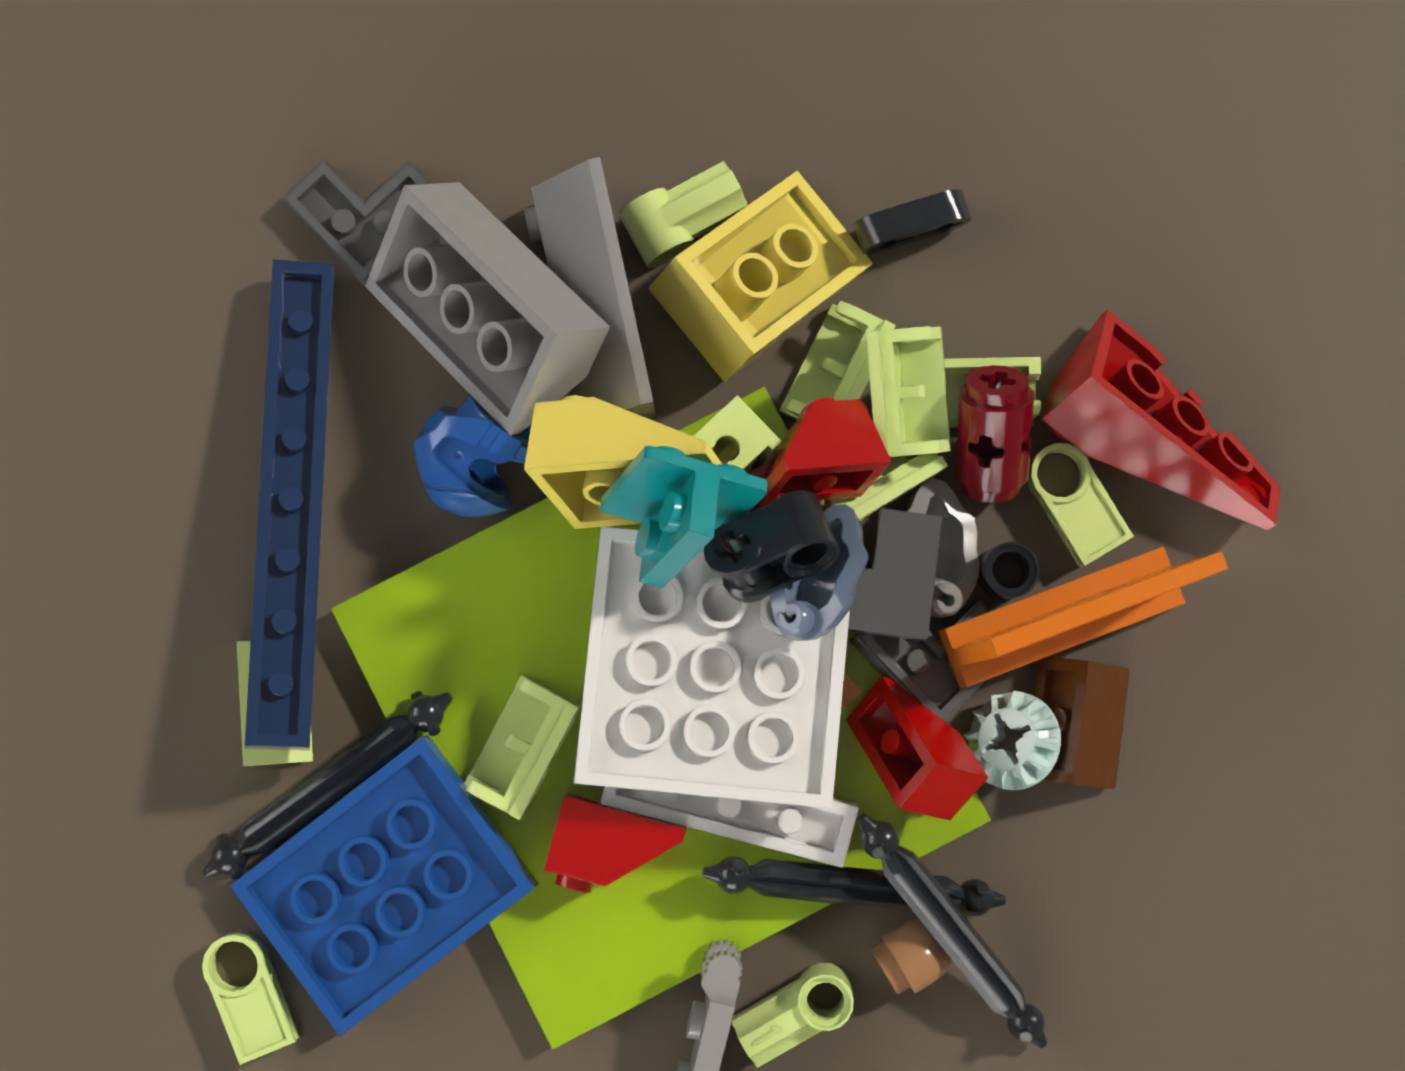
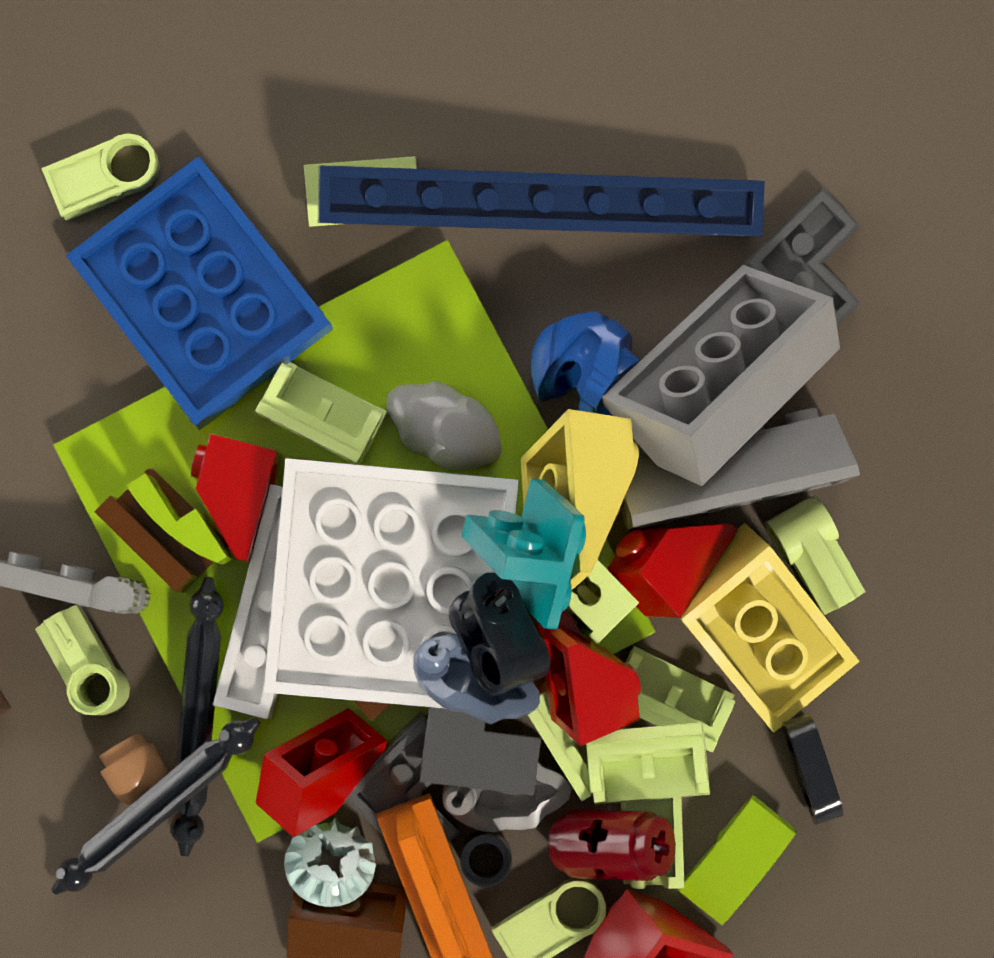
camera: 90 degrees right, 0 degrees up
(327, 785) = (289, 241): black wheel -> none
(537, 612) = (444, 425): none -> light grey arm
(649, 923) = (162, 552): none -> reddish brown panel
(651, 891) = (191, 530): none -> lime slope
(692, 366) = (669, 564): none -> red slope
(1008, 302) = (737, 860): none -> lime slope

